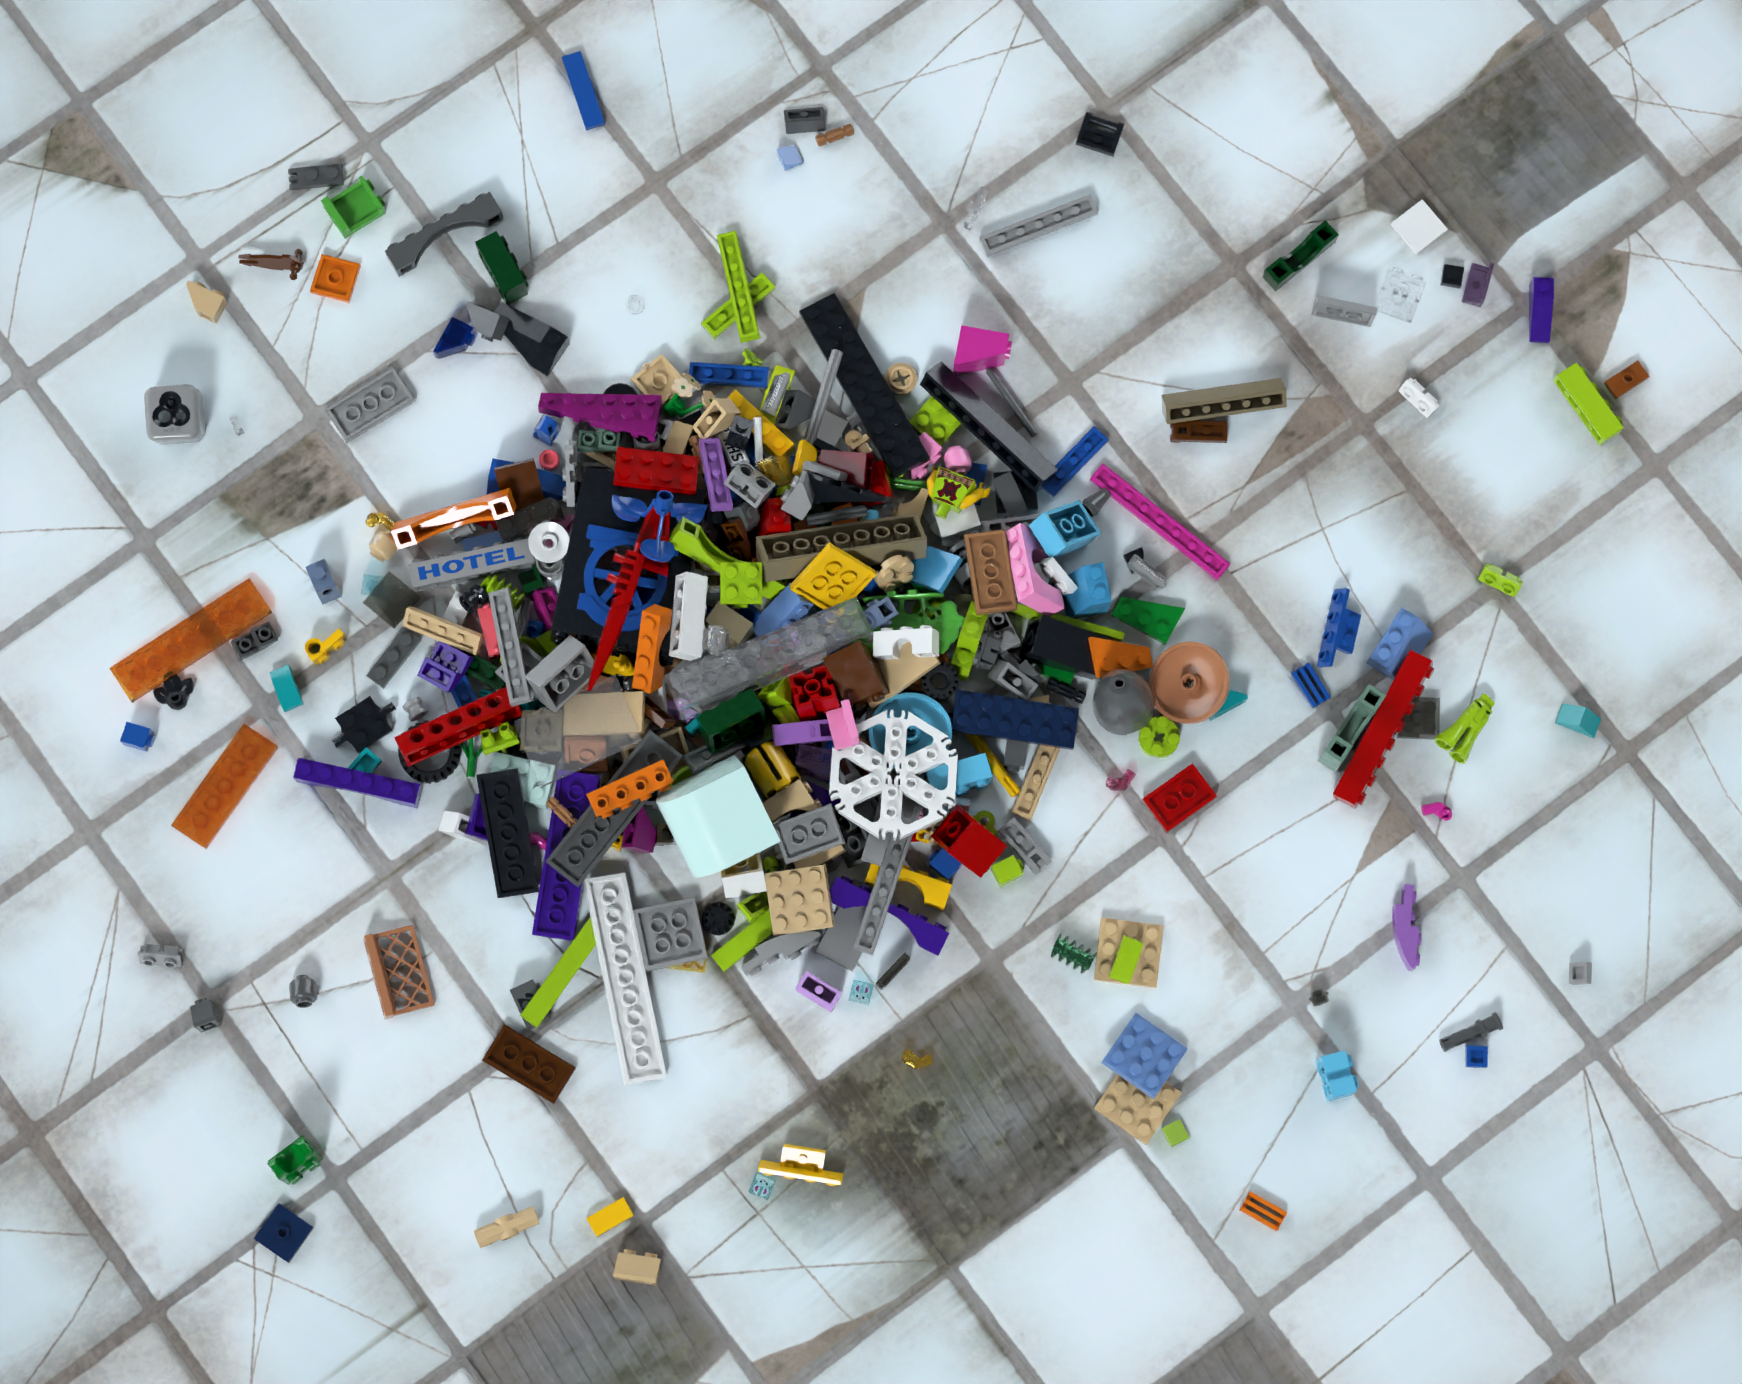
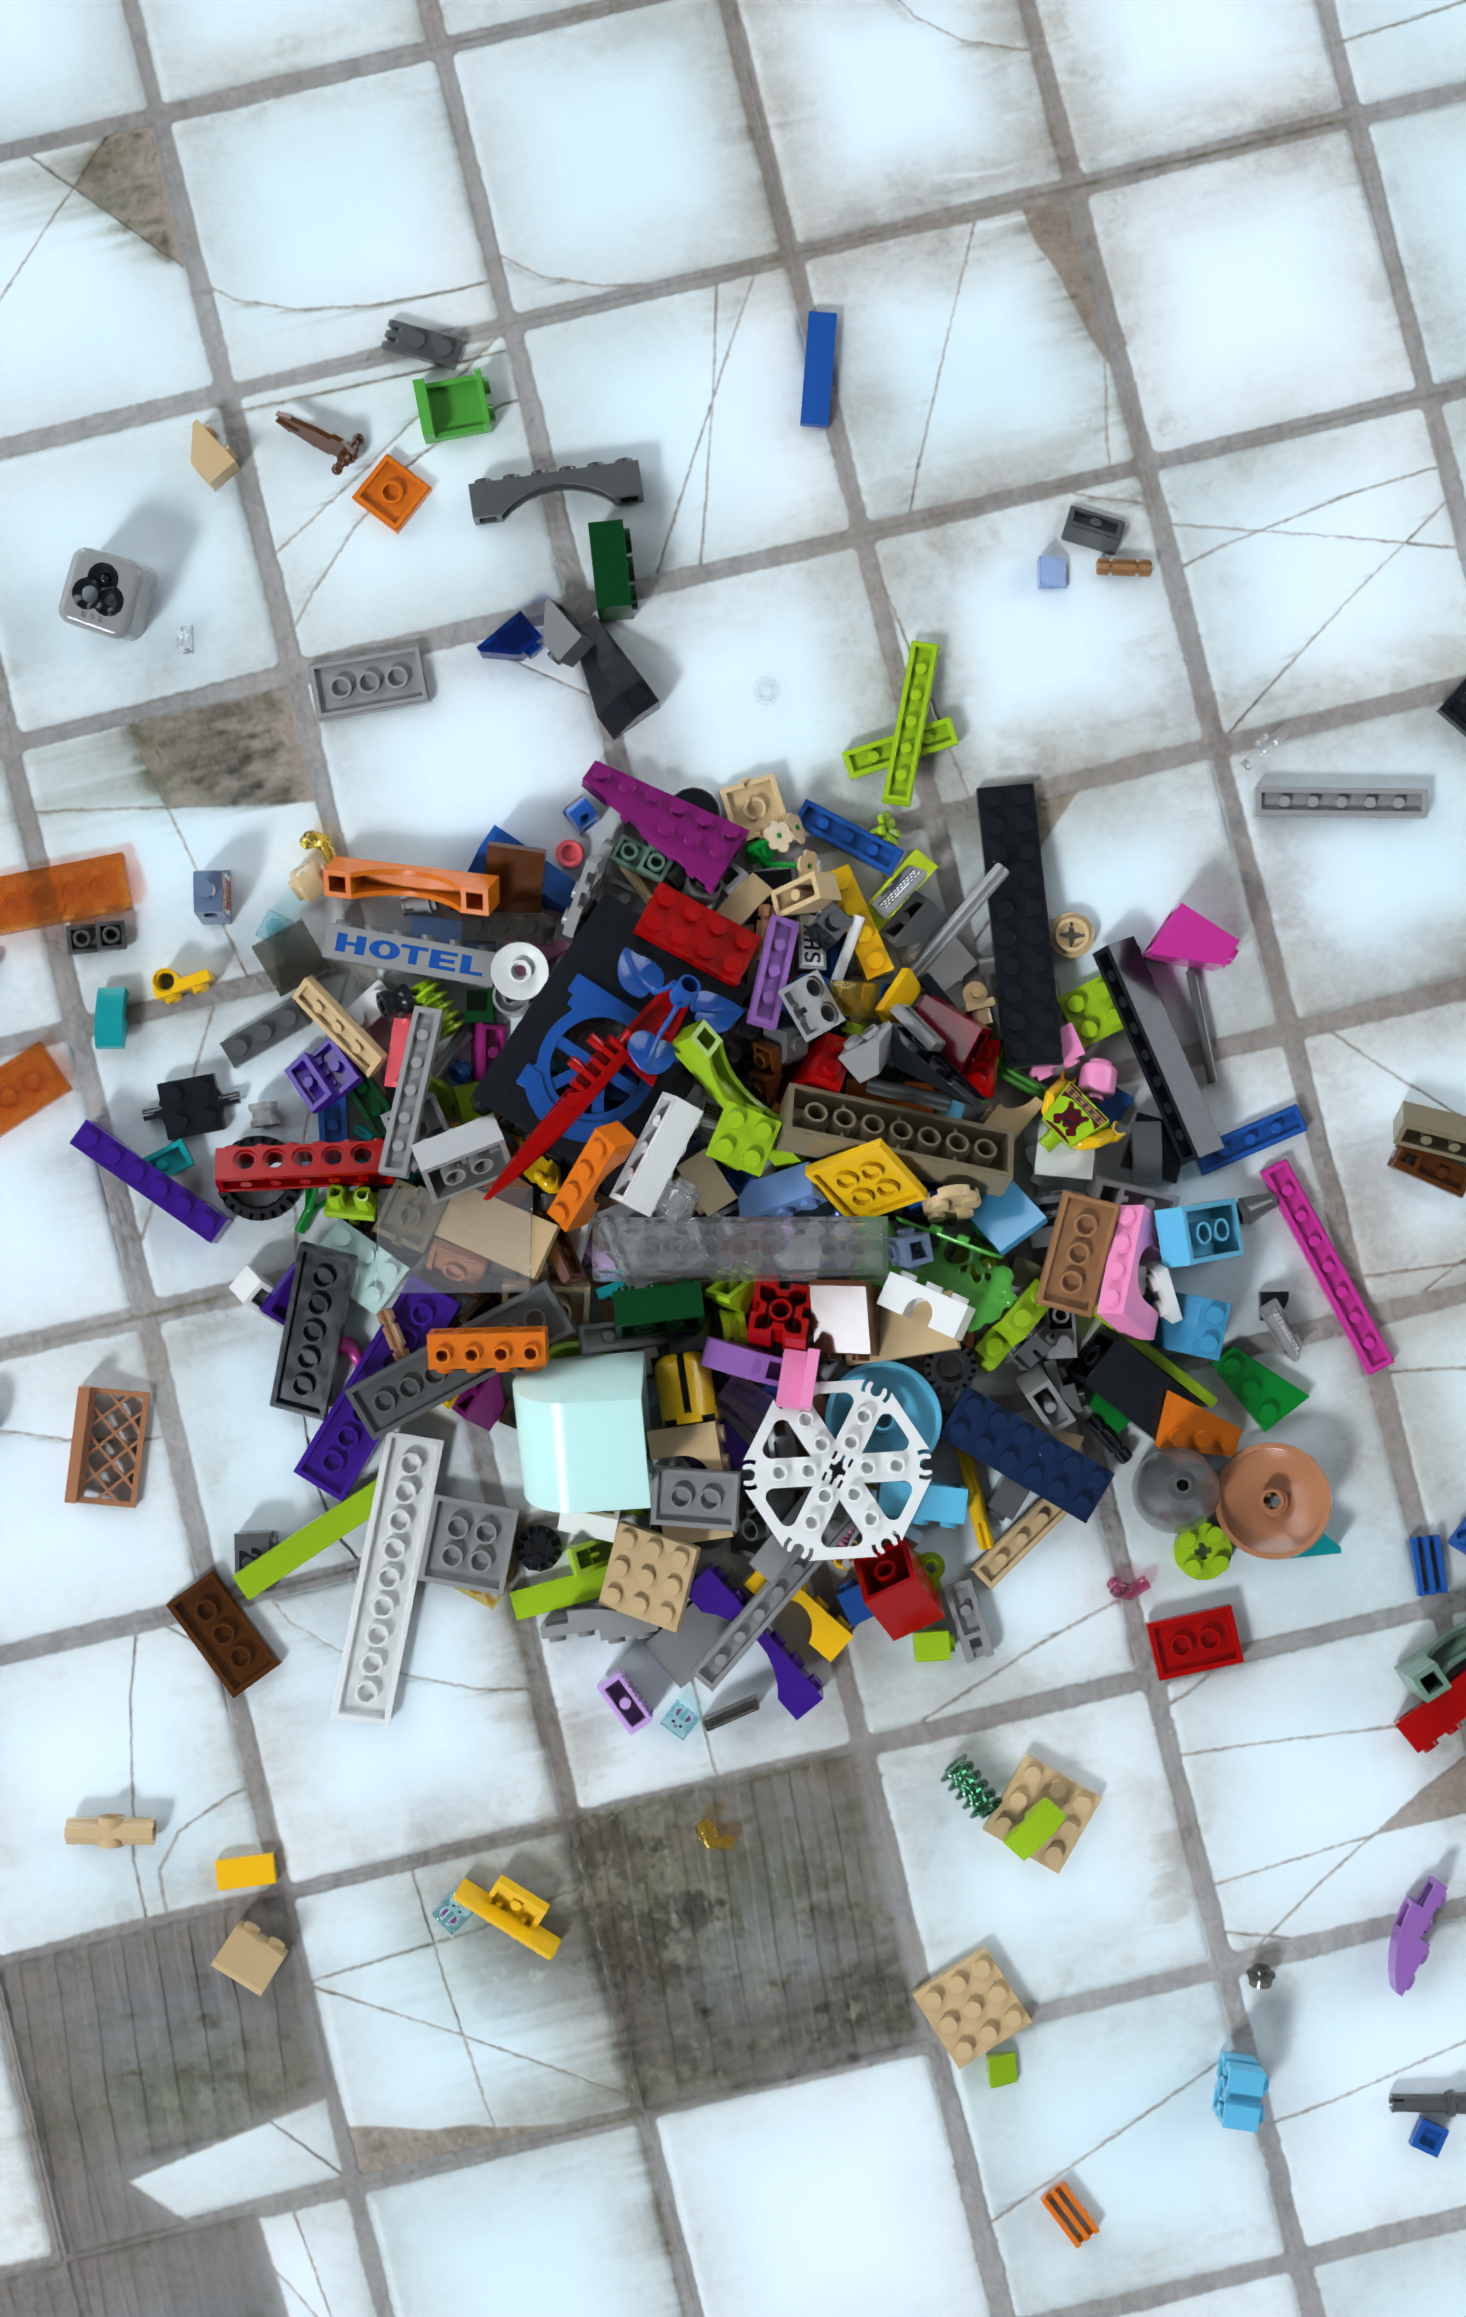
camera: 25 degrees right, 10 degrees up
(1144, 1055) = (1005, 1957): medium blue plate -> none

